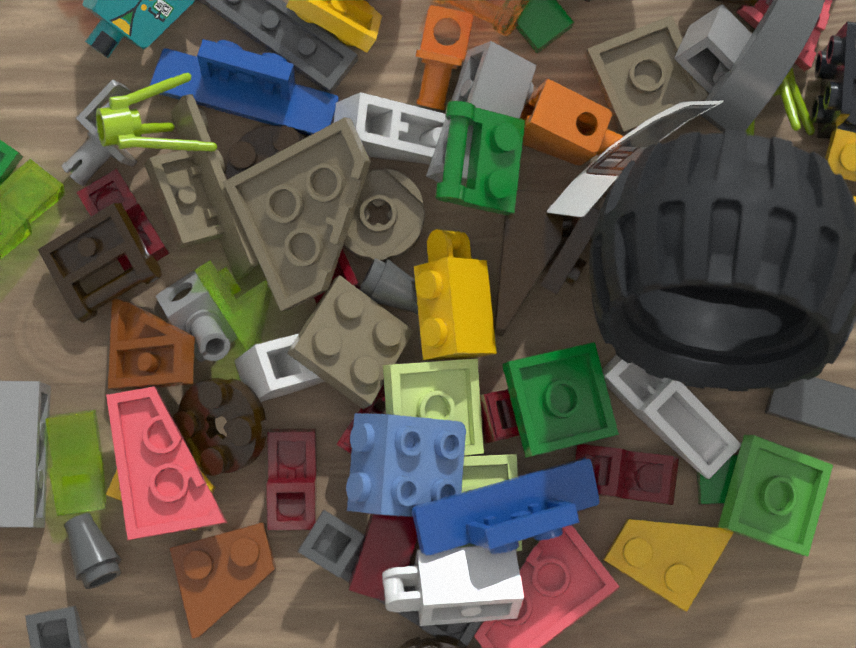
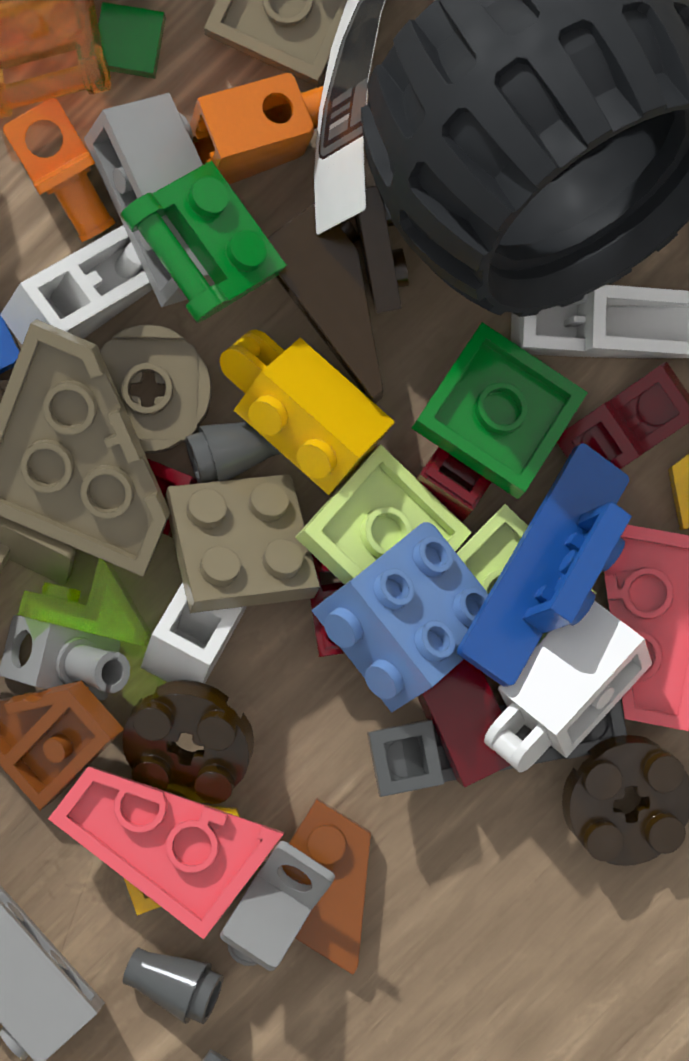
camera: 40 degrees left, 5 degrees up
(77, 462) = (76, 910): clear neon green slope -> none
(182, 559) = (274, 908): none -> light grey bracket
(291, 479) = (305, 731): dark red slope -> none

